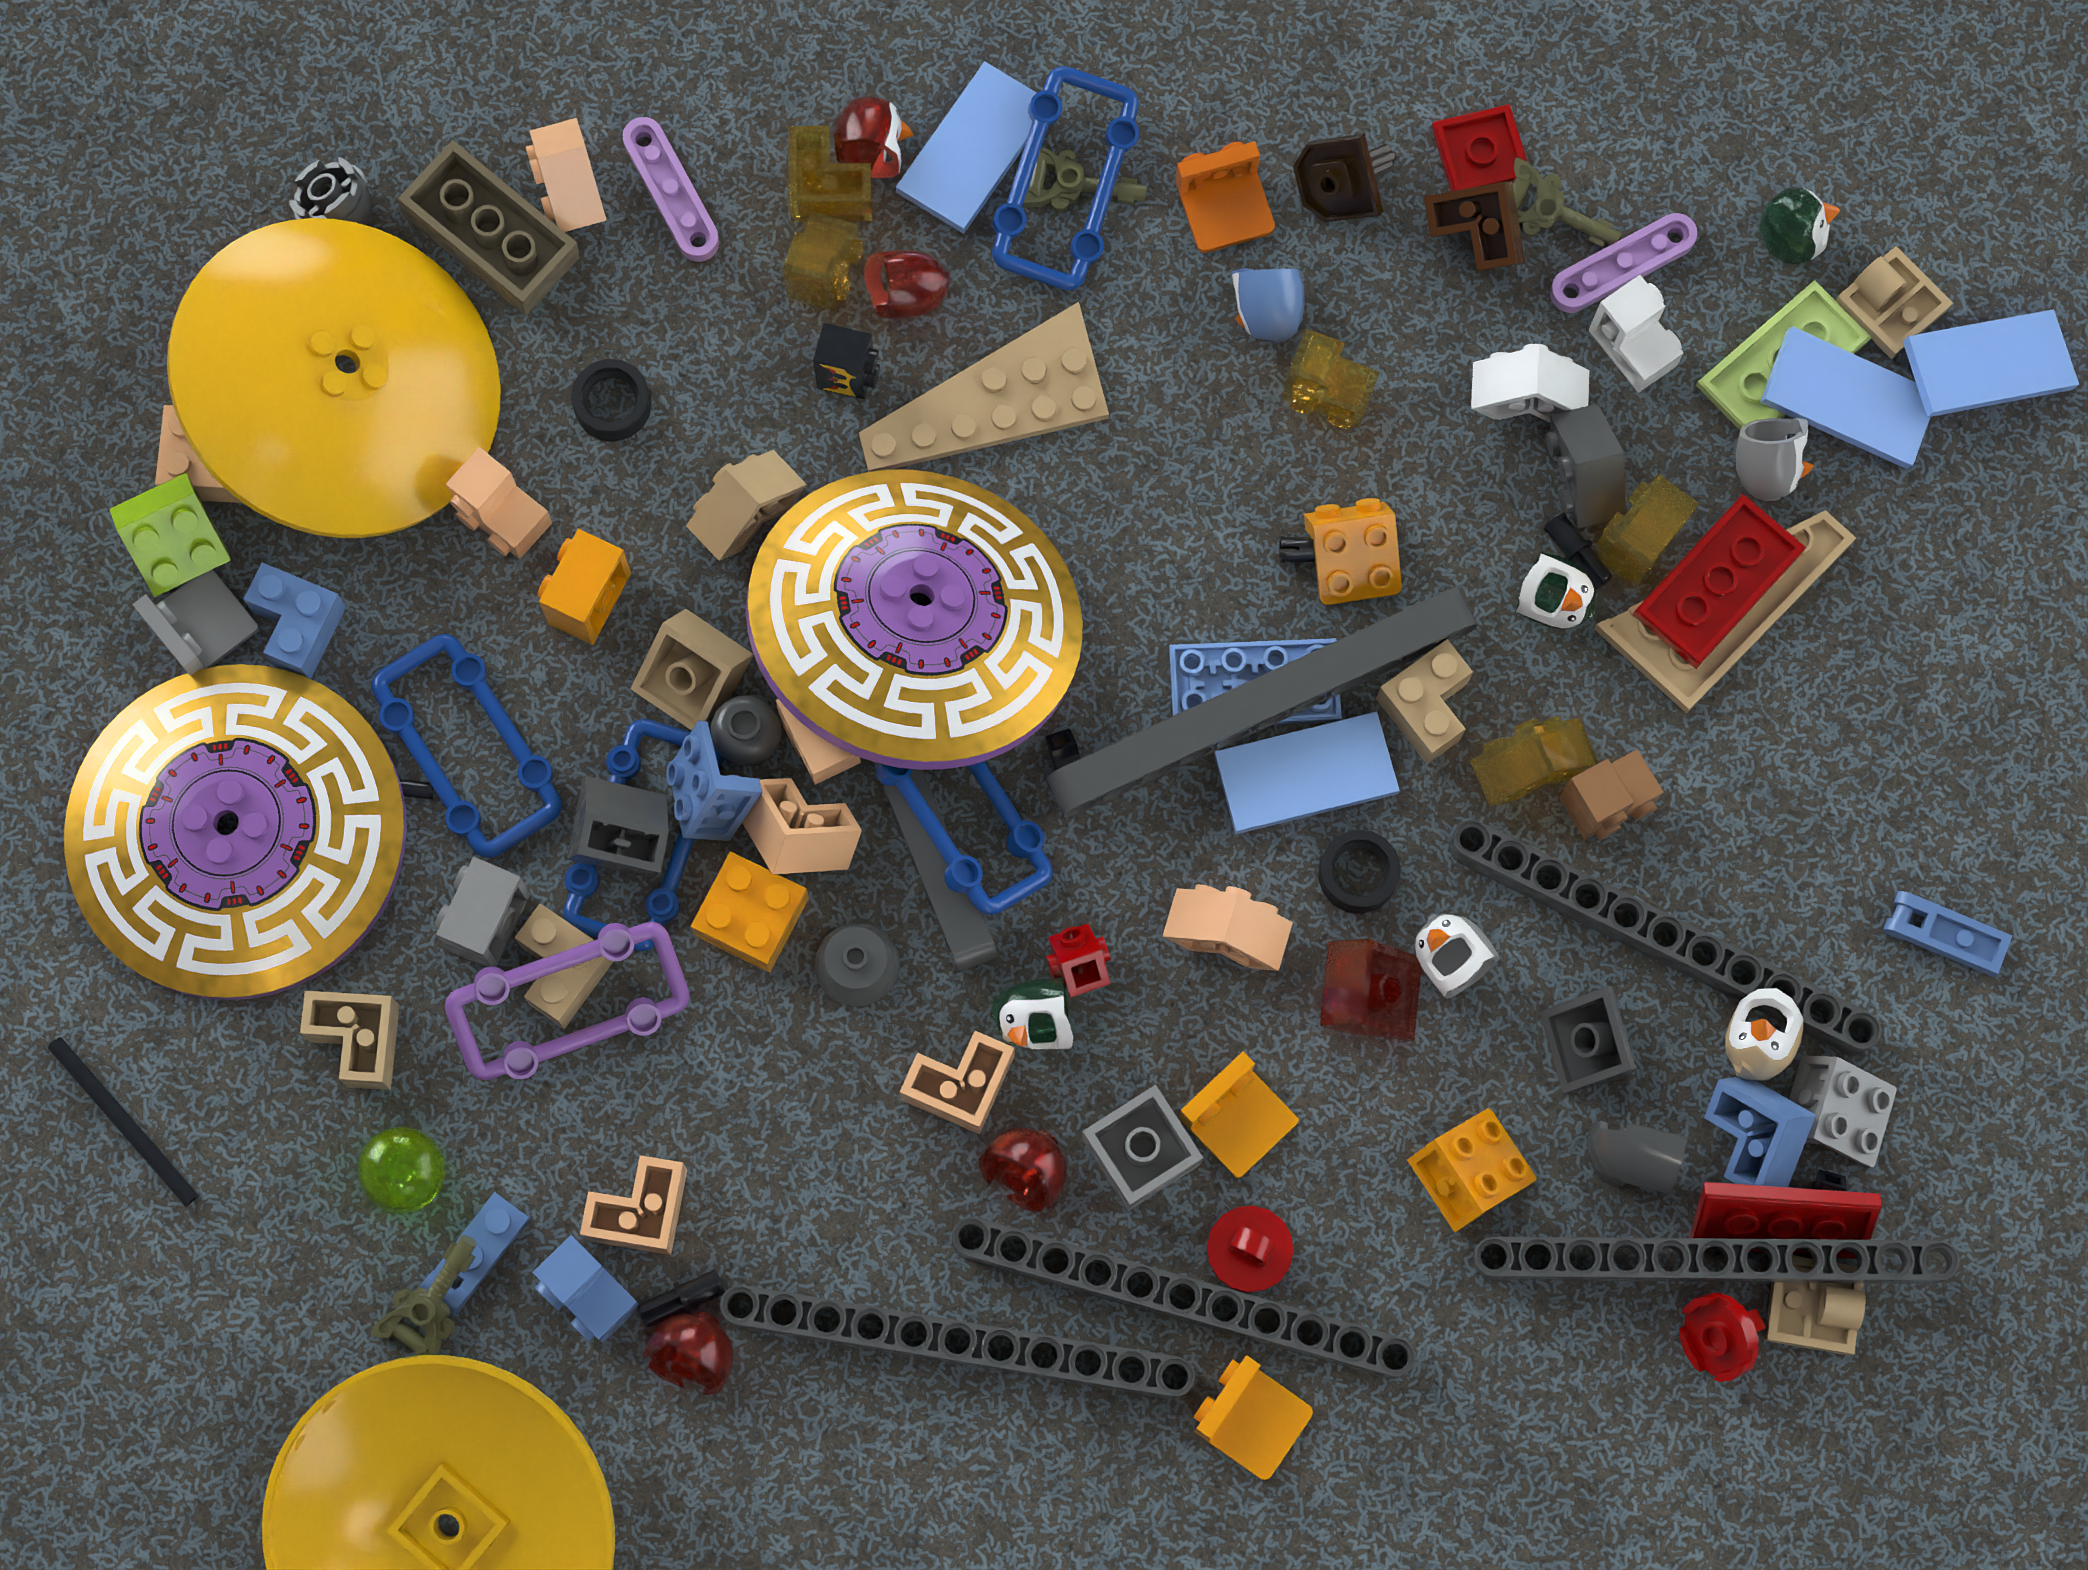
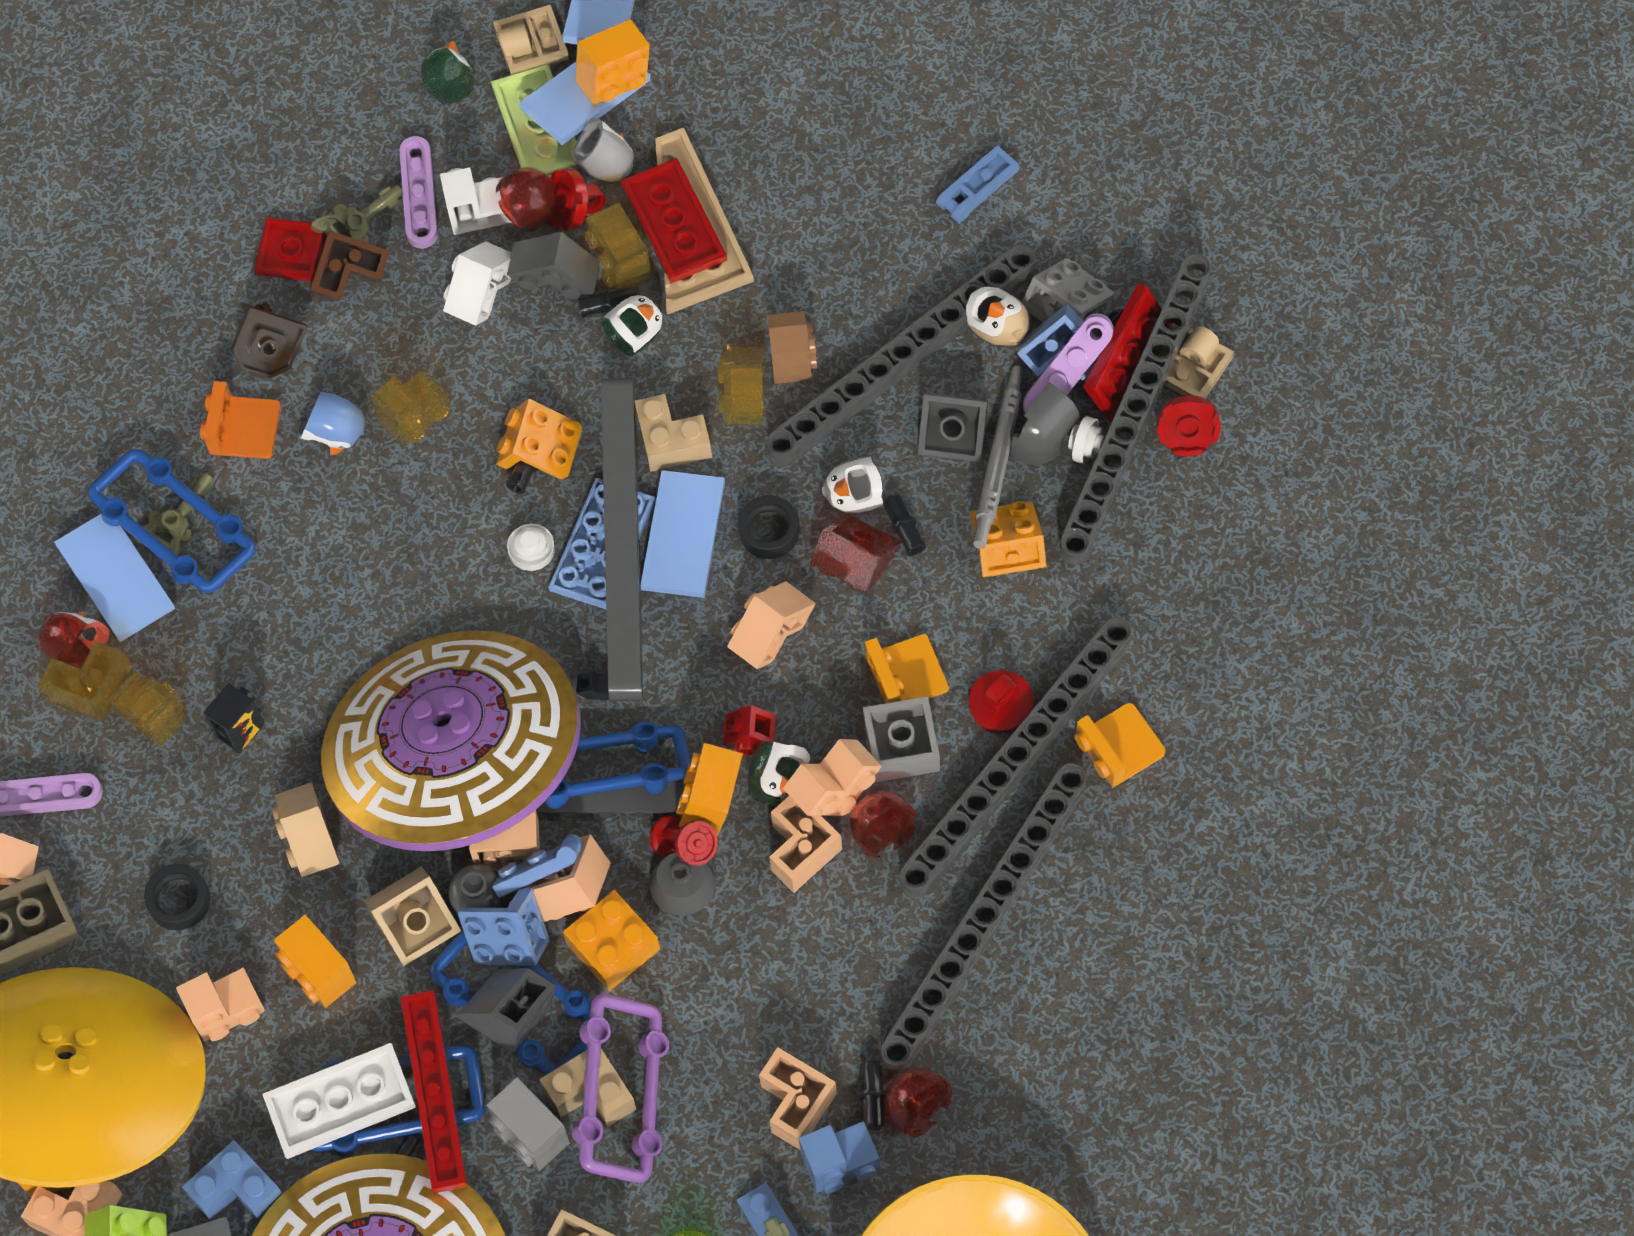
camera: 60 degrees left, 10 degrees down
(431, 689) = (338, 1100): none -> white plate
(482, 789) = (434, 1092): none -> red plate
(791, 787) = (537, 866): none -> medium blue plate
(894, 954) = (693, 842): none -> red hose
(914, 282) = (201, 647): clear red piece -> none
(966, 946) = (709, 786): none -> light orange brick
(1015, 393) = (312, 619): tan wing -> none
(1042, 1089) = (835, 782): none -> light nougat brick
(1211, 601) = (531, 547): none -> white plate
(1433, 1034) = (904, 525): none -> black axle
(1571, 1114) = (998, 457): none -> light grey axle
(1643, 1214) = (1086, 440): none -> white plate
(1666, 392) = (527, 197): none -> clear red cylinder
(1692, 448) = (573, 199): none -> red tile
(1737, 1153) = (1073, 358): none -> lavender plate
(1893, 411) = (612, 62): none -> light orange brick

